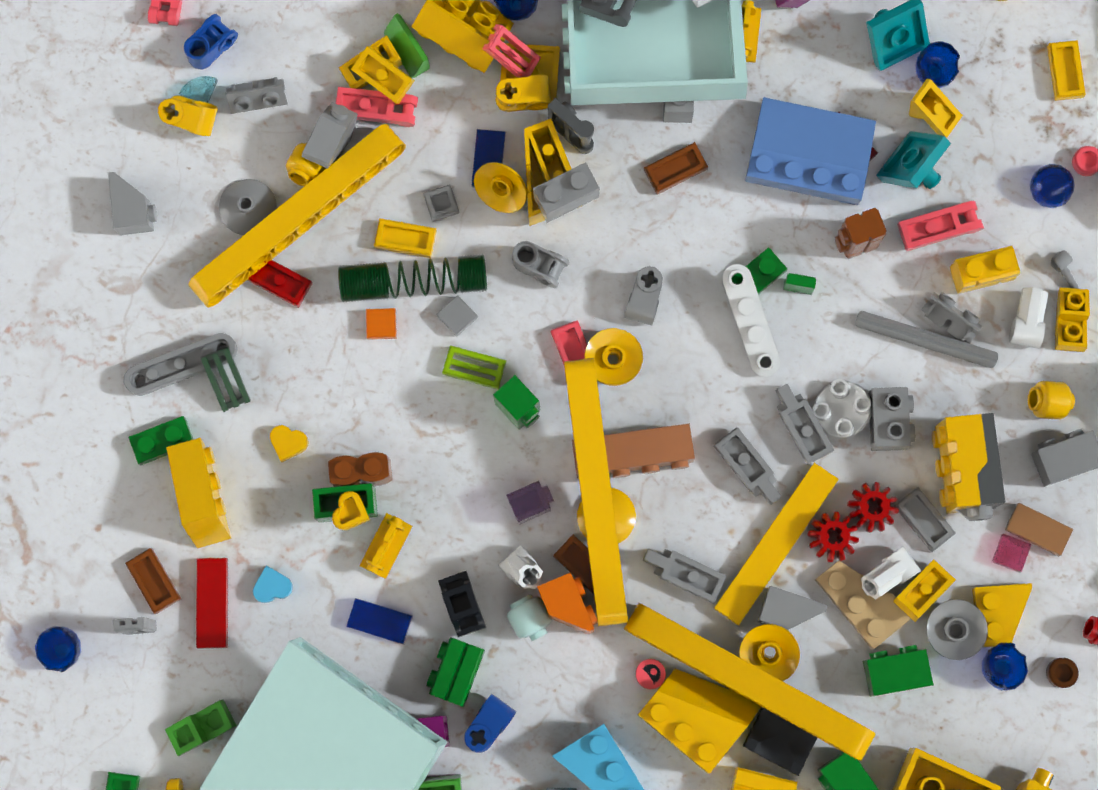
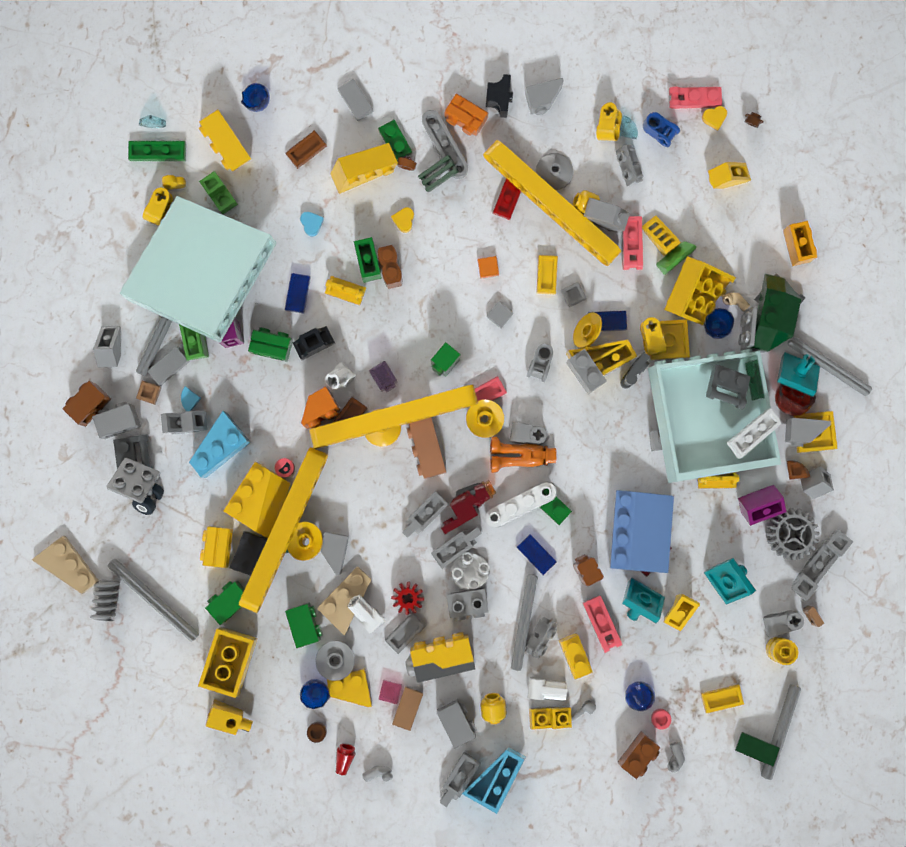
camera: 75 degrees right, 5 degrees up
(86, 493) = (355, 99): none -> light grey tile
(119, 271) = (500, 95): none -> black brick
(120, 706) = (224, 141): none -> yellow wedge
(133, 626) = (273, 140): light grey tile -> none
(141, 326) = (465, 115): none -> orange brick
(201, 425) = (406, 163): none -> dark orange tile
(212, 603) = (296, 188): red tile -> none
(350, 511) = (359, 262): yellow tile -> none
(373, 280) = (515, 257): dark green piece -> none
(382, 75) = (652, 243): yellow plate -> none
(491, 719) = (242, 370): blue piece -> none
(498, 374) = (466, 346): lime tile -> none
(501, 31) = (684, 311): coral tile -> none
(529, 617) = (308, 384): light aqua head -> none
(675, 168) = (618, 444): dark orange tile -> none
(675, 296) = (531, 455): none -> orange piece
(686, 573) = (350, 482): light grey hinge -> none
(739, 403) = (466, 501): none -> dark red plate
(776, 544) = (377, 538): yellow tile -> none
(799, 283) = (550, 534): green tile -> none
(827, 308) = (536, 554): none -> clear blue tile
(843, 536) = (387, 580): red gear -> none
(924, 590) = (357, 637): yellow plate -> none
(938, 63) = (712, 610): clear blue hair -> none

